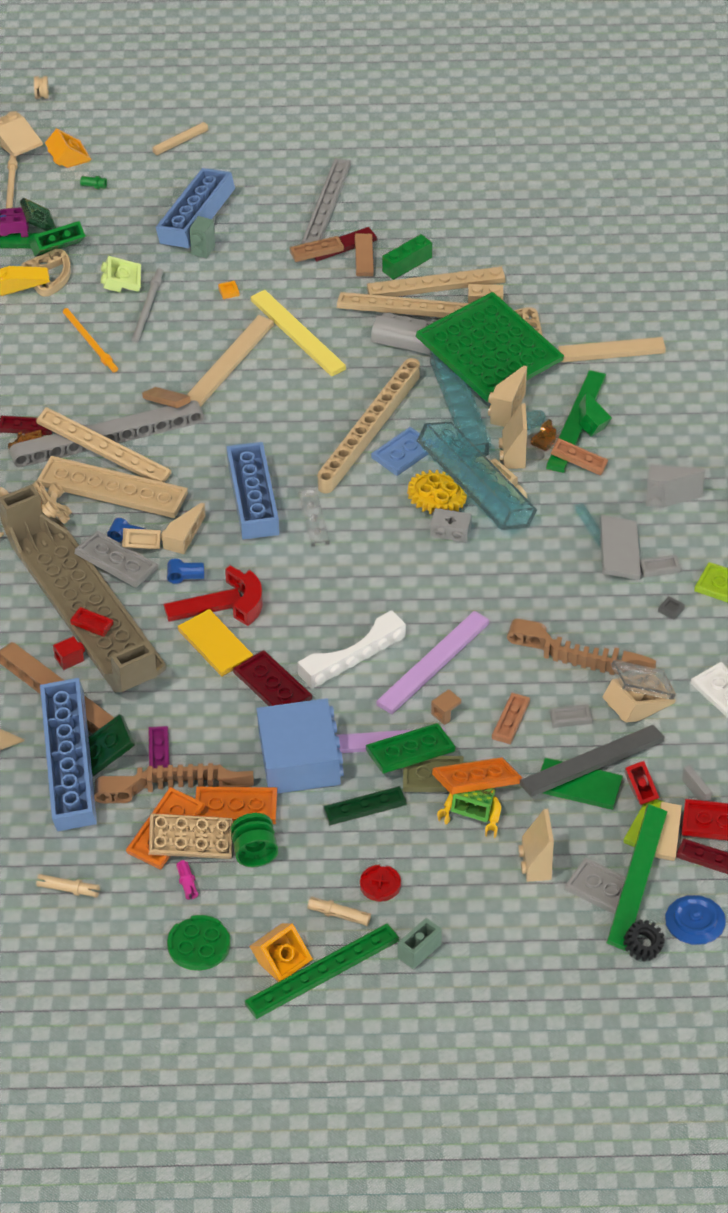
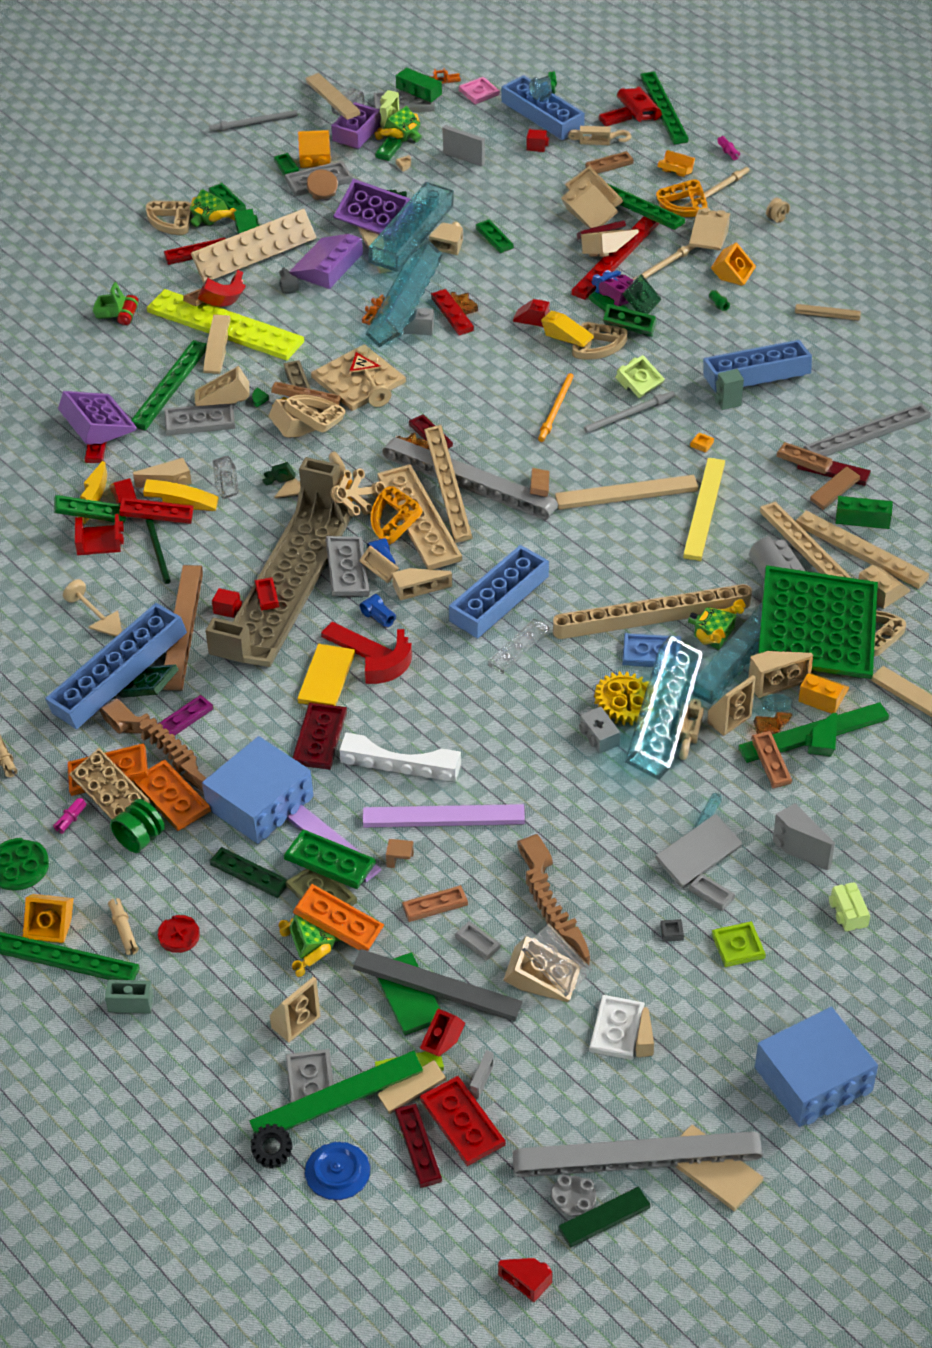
camera: 50 degrees right, 0 degrees up
(106, 490) = (403, 514): none -> light orange beam
(423, 400) = (716, 624): none -> torso
(549, 392) = (822, 693): none -> light orange slope

